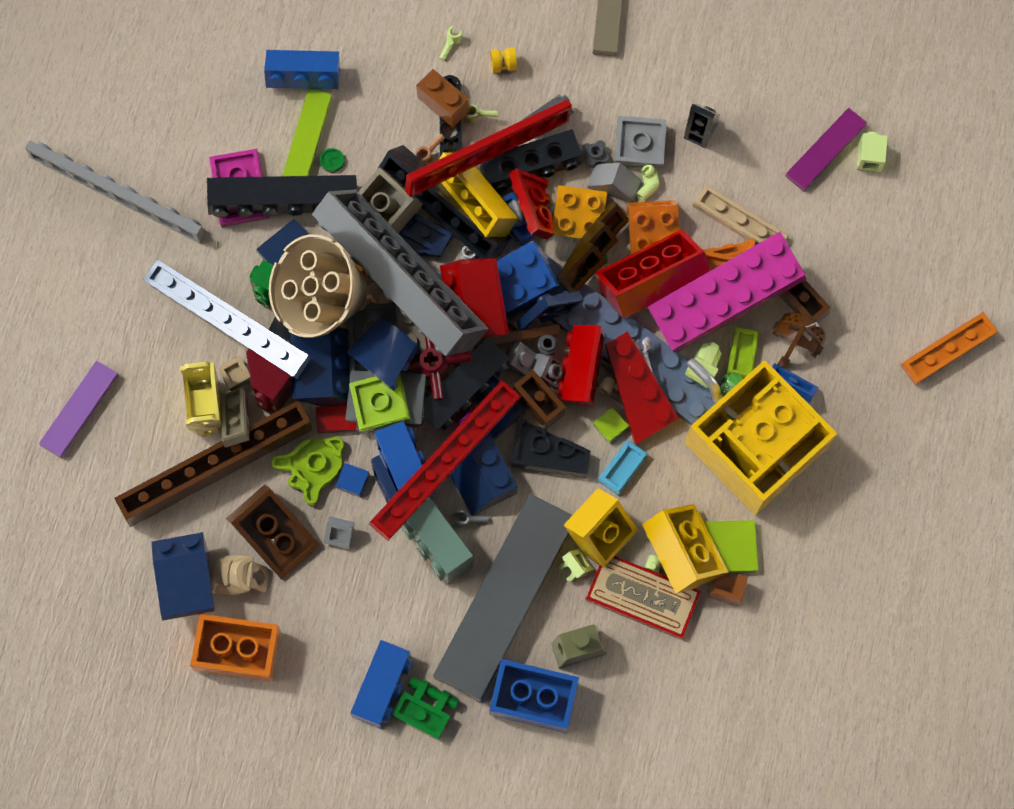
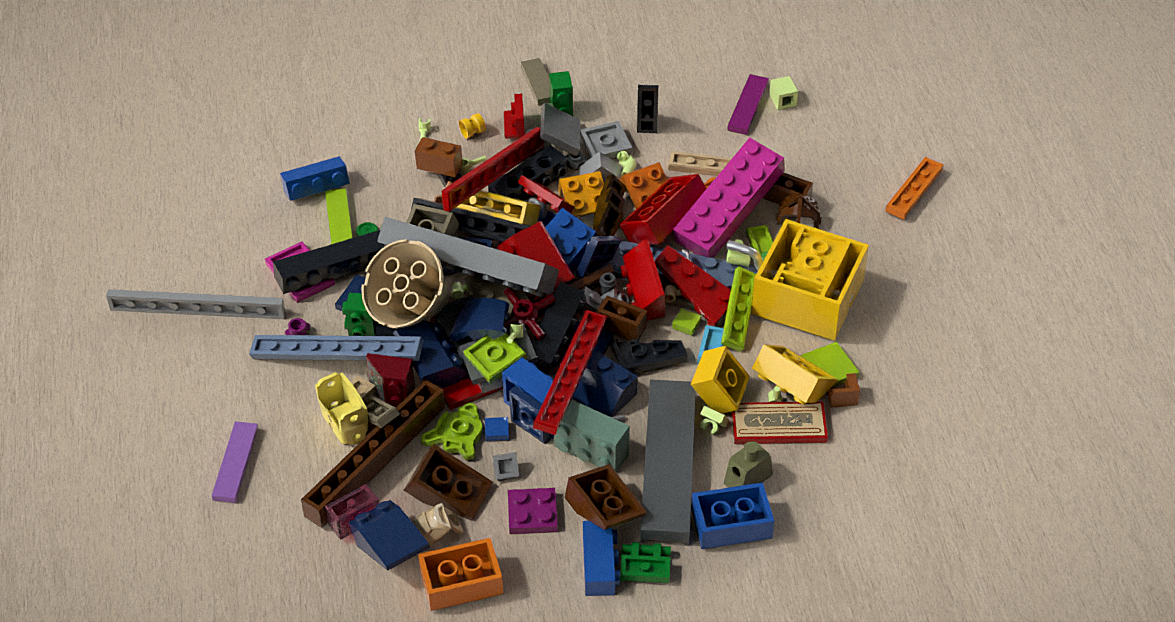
camera: 20 degrees left, 25 degrees down
(162, 525) = (348, 507): none -> clear pink brick
(201, 260) = (297, 327): none -> magenta plate
(343, 595) = (532, 511): none -> magenta plate
(409, 387) = (516, 331): none -> yellowish green hand
(412, 626) = (602, 498): none -> reddish brown slope
(553, 71) = (514, 119): none -> red bracket
(593, 110) = (560, 129): none -> dark grey tile
(616, 60) = (561, 91): none -> green brick
(670, 437) = (738, 309): none -> lime tile

